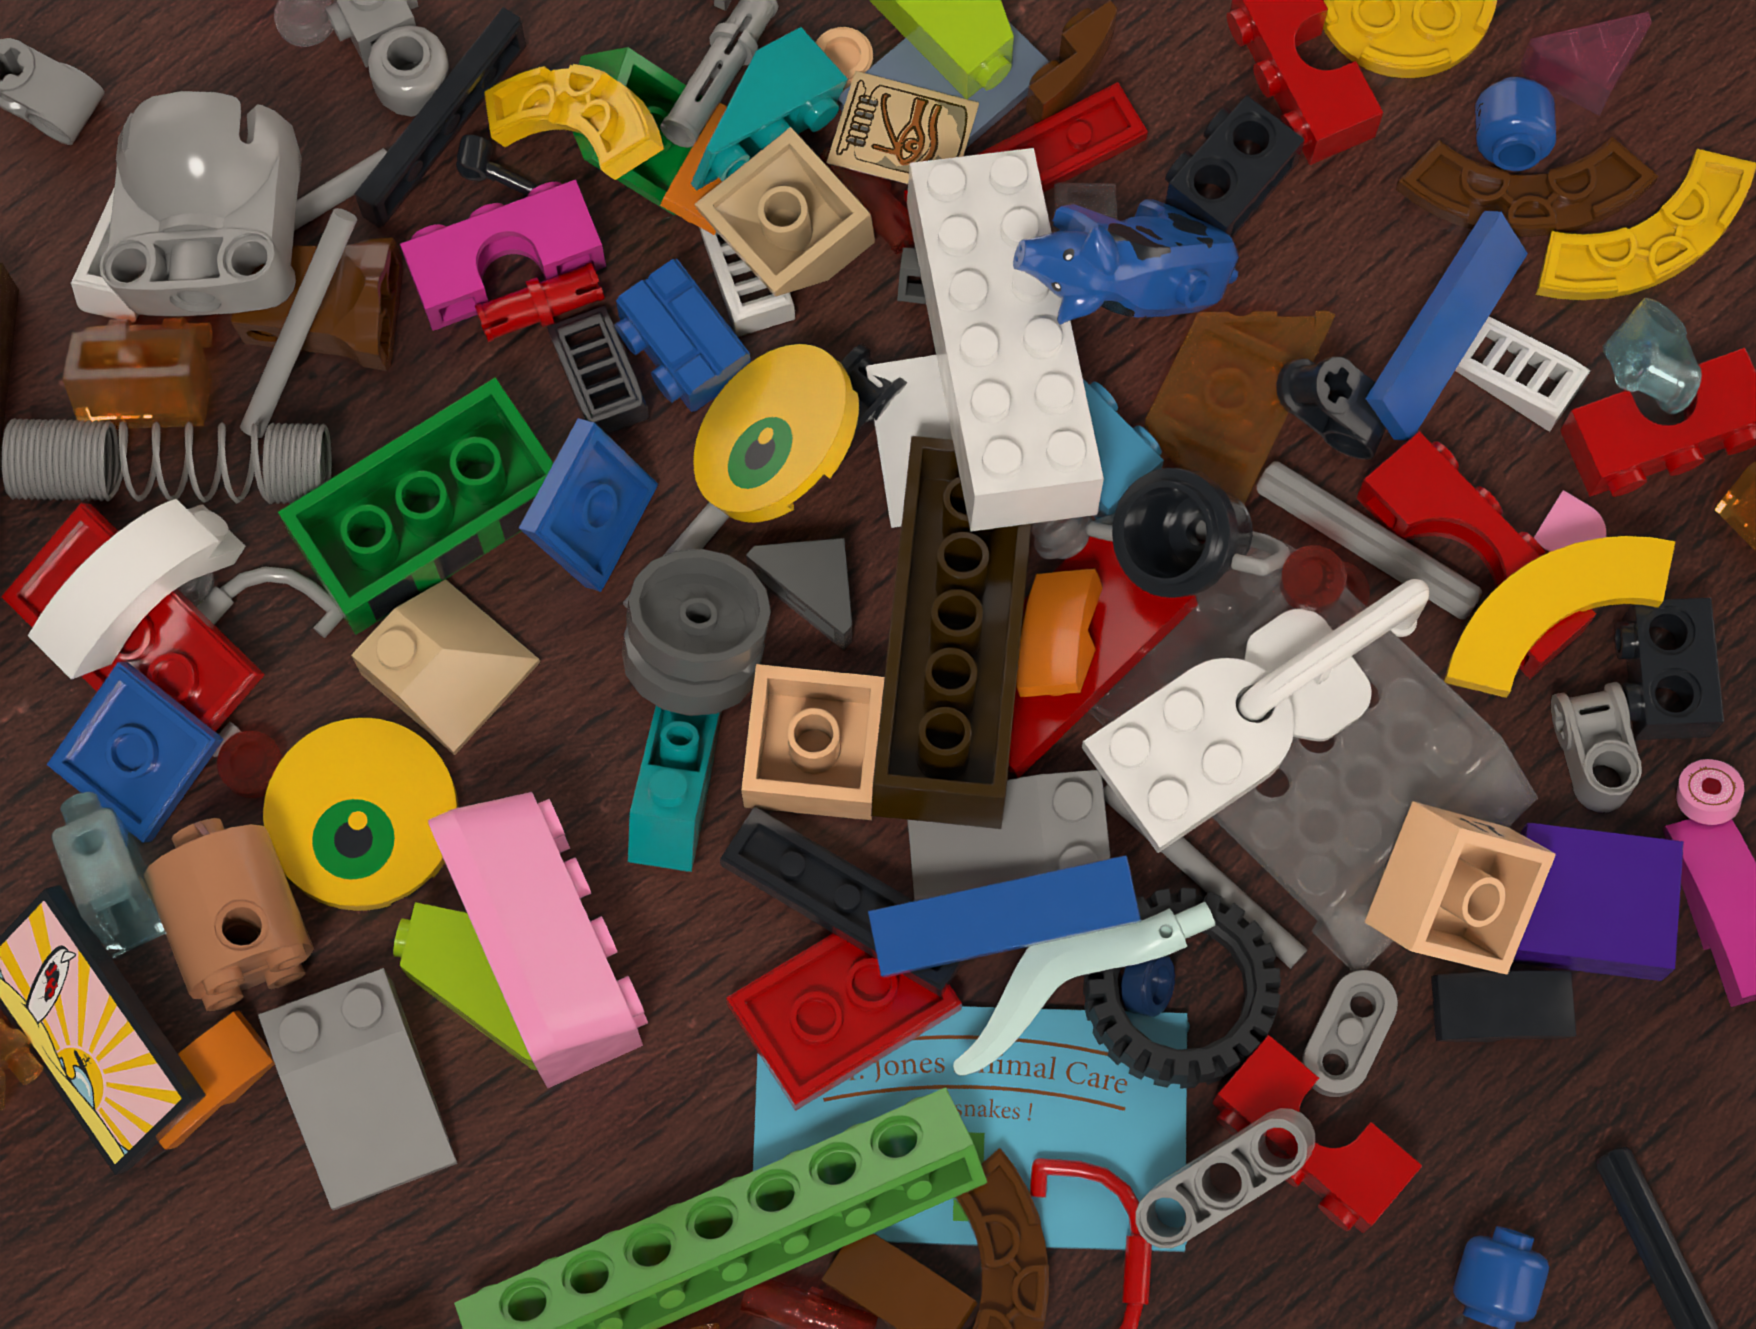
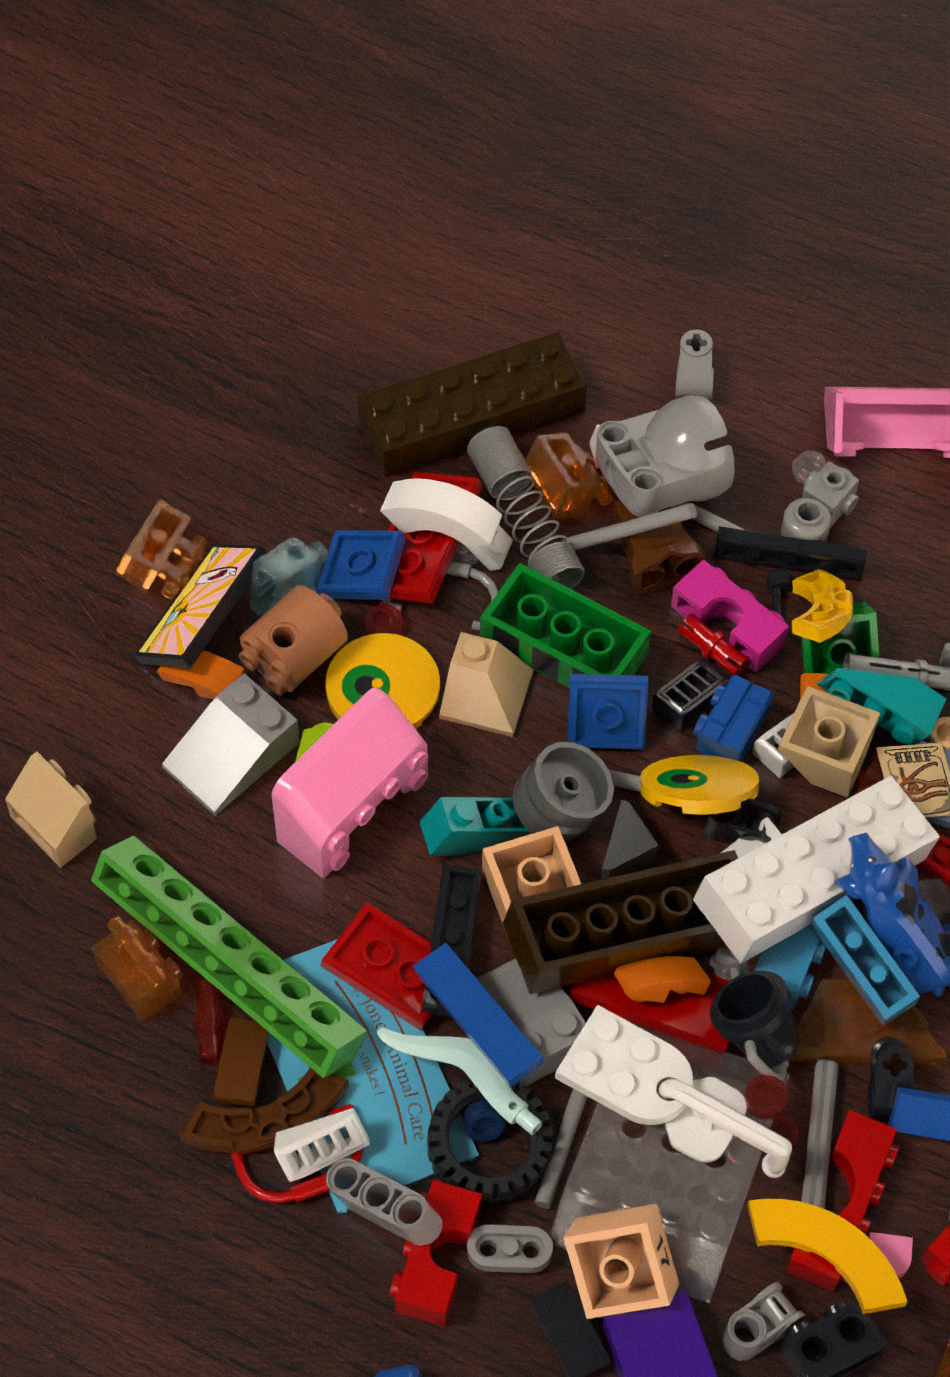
camera: 65 degrees right, 15 degrees down
(1086, 1234) = (309, 1161): none -> white slope
(1175, 344) = (865, 960): none -> dark azure brick

